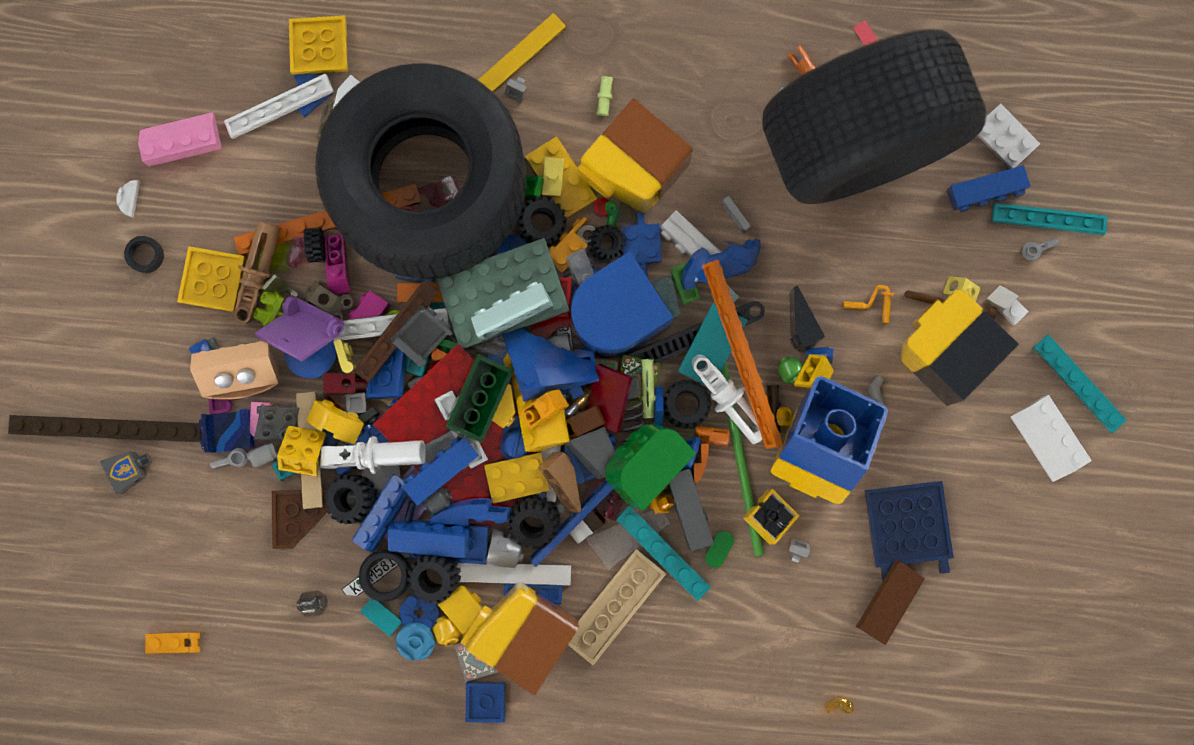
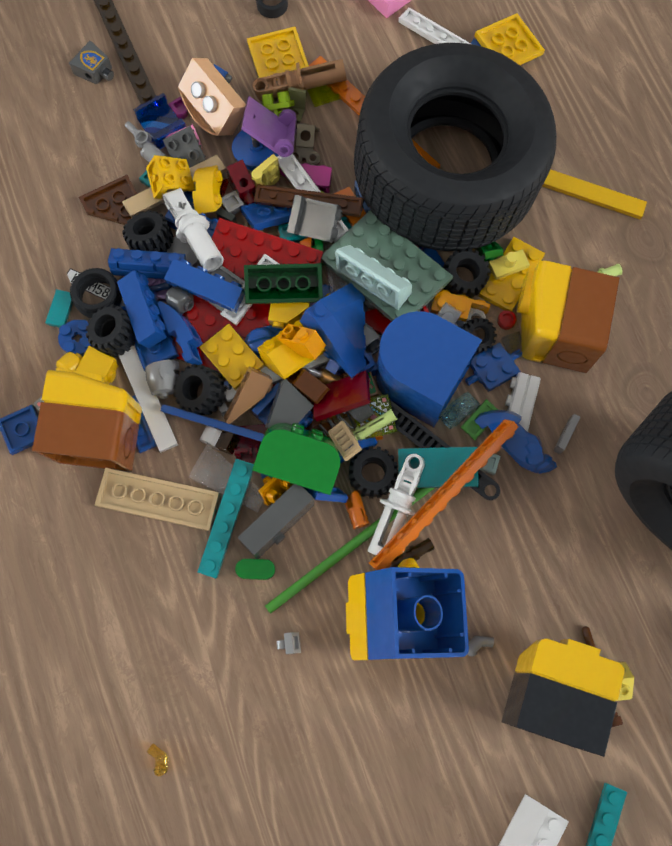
camera: 60 degrees right, 10 degrees down
(296, 252) = (333, 104): clear pink arm -> none
(312, 603) = (46, 248): clear smoke head -> none
(314, 245) = (346, 111): black tyre -> none
(337, 264) = (336, 138): dark pink slope -> none
(415, 641) = (49, 344): dark azure tile -> none
(516, 90) = (564, 202): light grey tile -> none
(613, 212) = (508, 328): green arm -> none
(642, 416) = (343, 439): none -> tan slope
(698, 468) = (320, 513): orange slope -> none
(771, 517) = (308, 601): piece -> none
(789, 369) = (454, 553): bright green head -> none
(803, 325) = (501, 542): black slope -> none
(813, 367) = (471, 569): yellow slope -> none
(823, 351) = (483, 574): blue cone -> none
(886, 302) = (564, 613): light orange piece -> none
(890, 602) = (282, 760): reddish brown tile -> none
(909, 525) = (366, 743): dark blue plate -> none
(1007, 304) = (631, 734): white slope -> none

